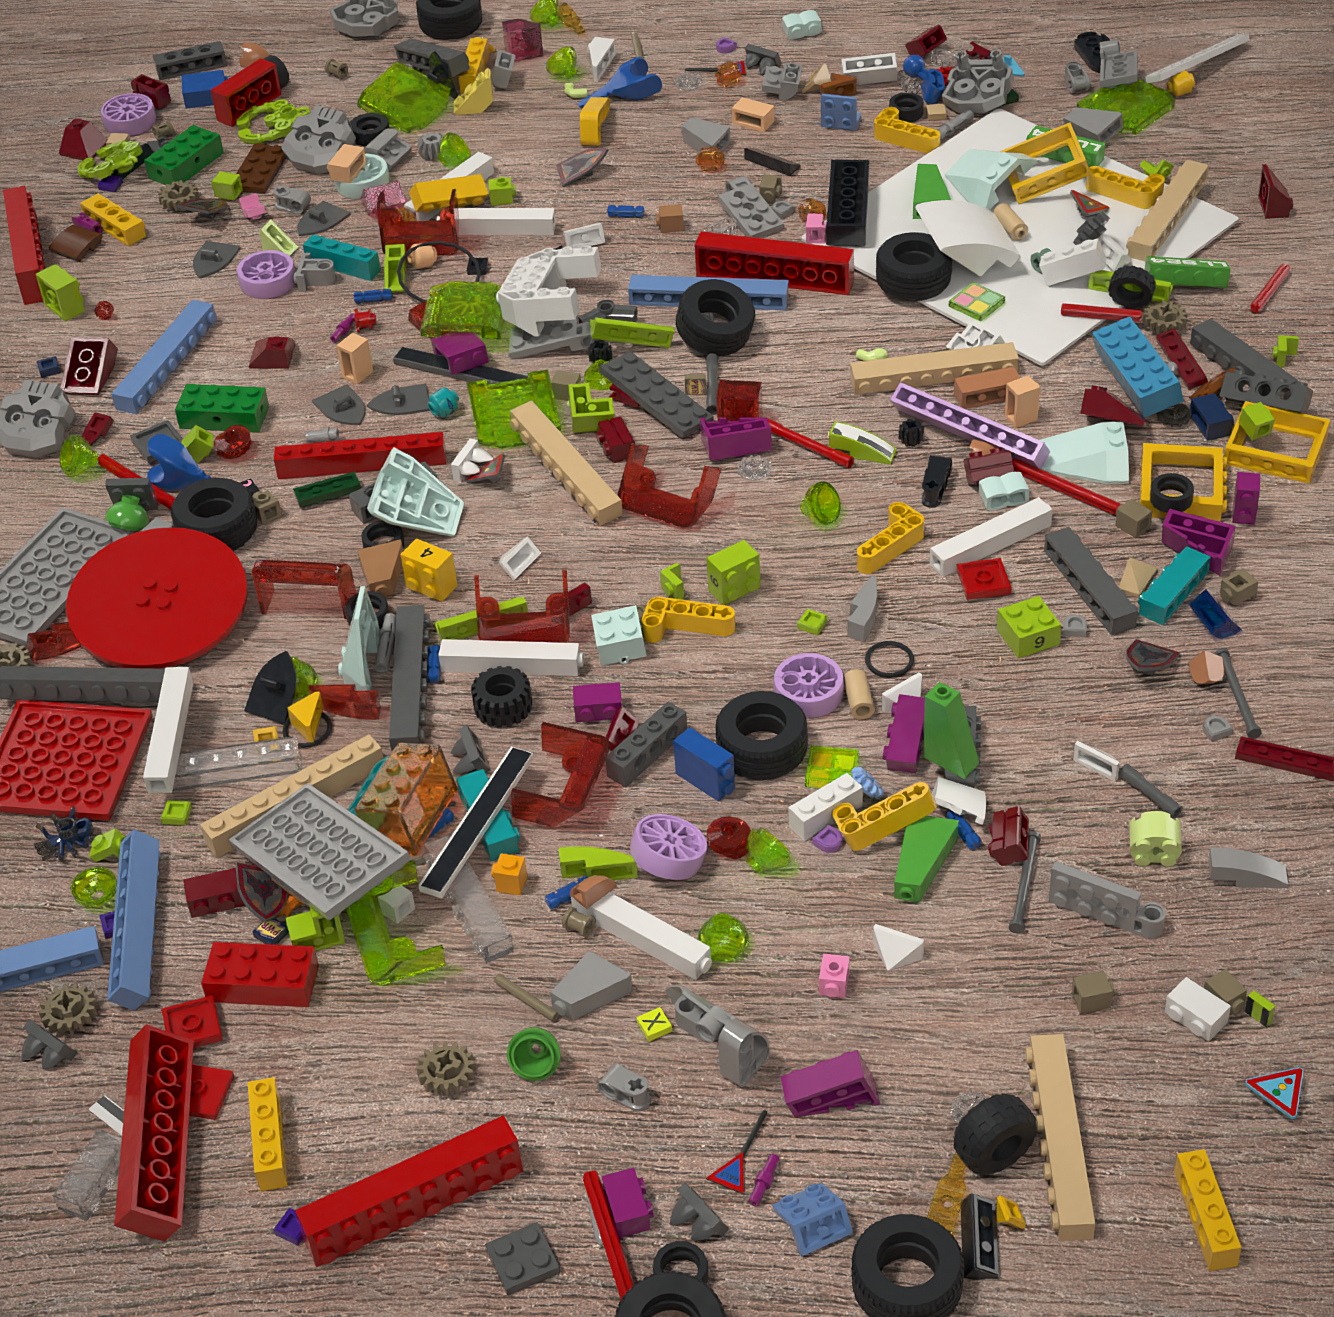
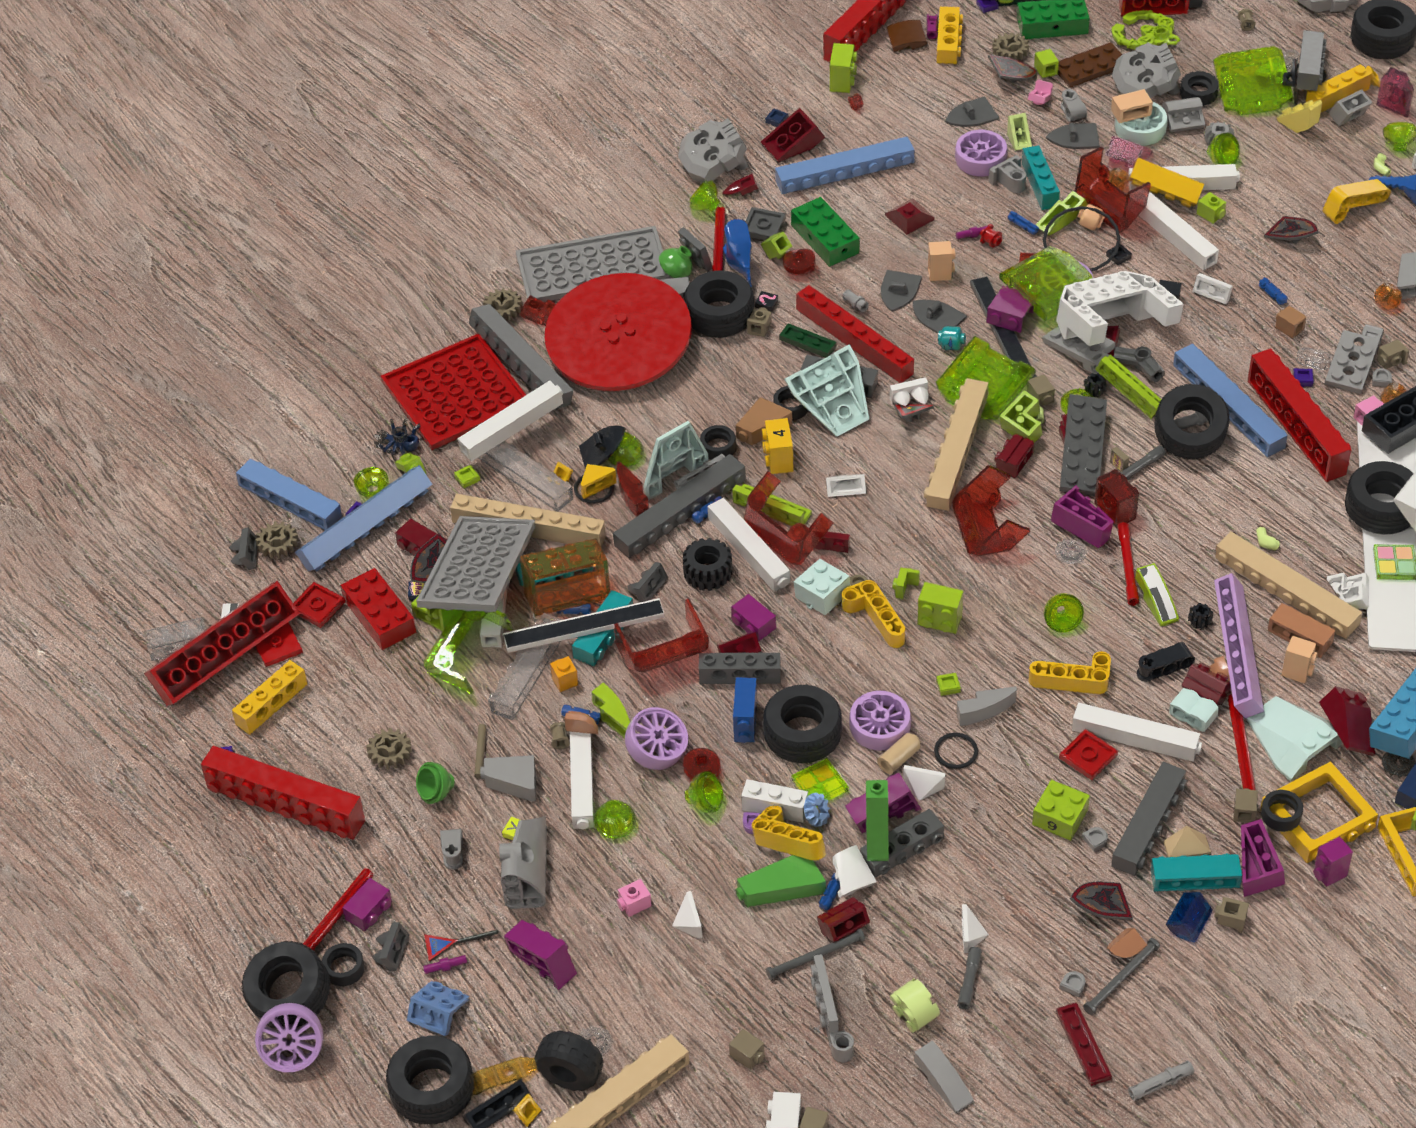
camera: 50 degrees right, 5 degrees up
(304, 572) = (691, 374): clear red windscreen -> none
(522, 1258) = (290, 881): dark grey plate -> none

